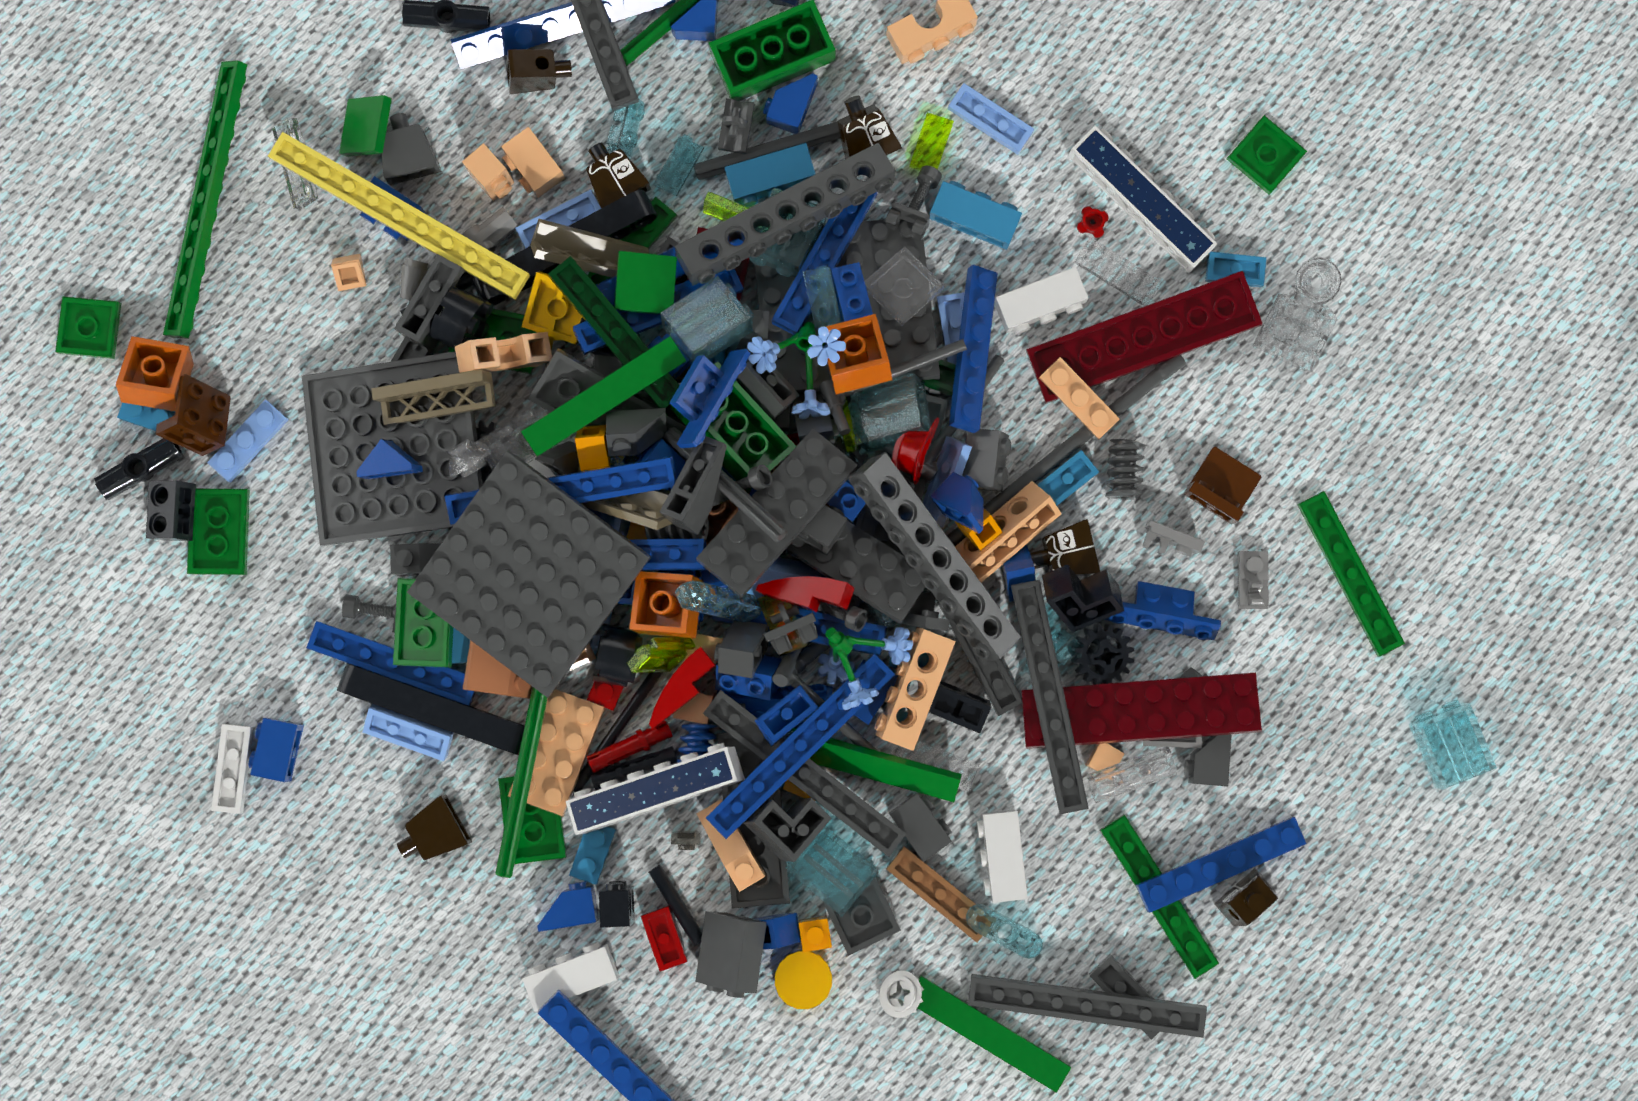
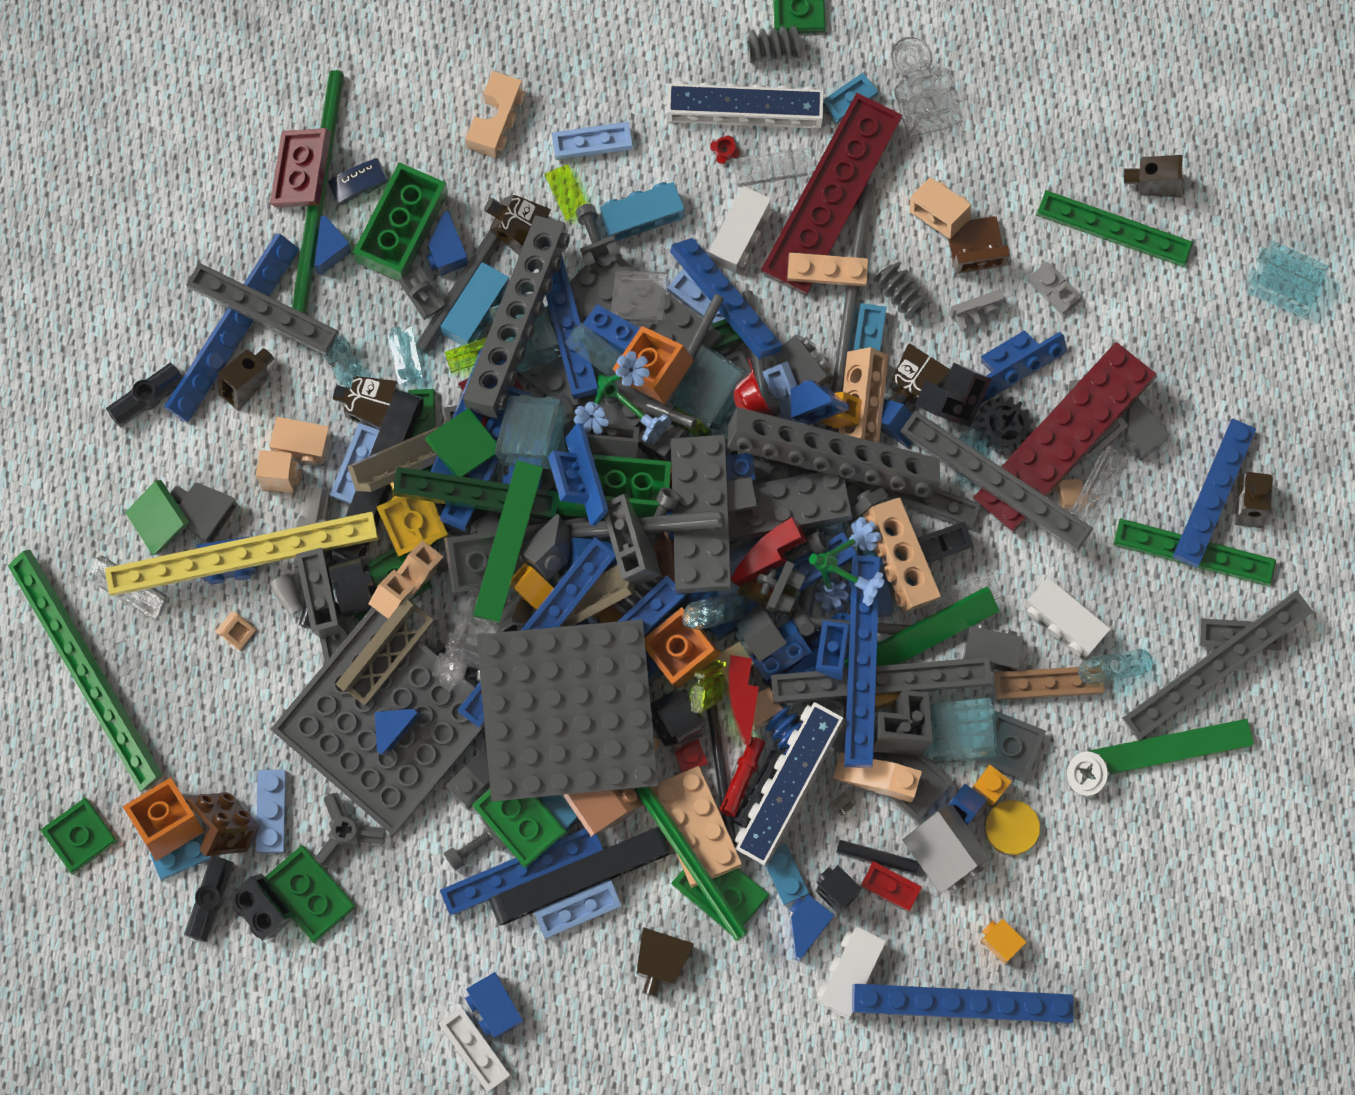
camera: 45 degrees left, 10 degrees down
(274, 509) = (339, 821): none -> dark grey bush
(710, 1061) = (1002, 940): none -> light orange brick
(1215, 167) = (773, 43): none -> dark grey piece
(1221, 429) = (940, 207): none -> light nougat brick
(1430, 574) = (1157, 176): none -> dark brown torso

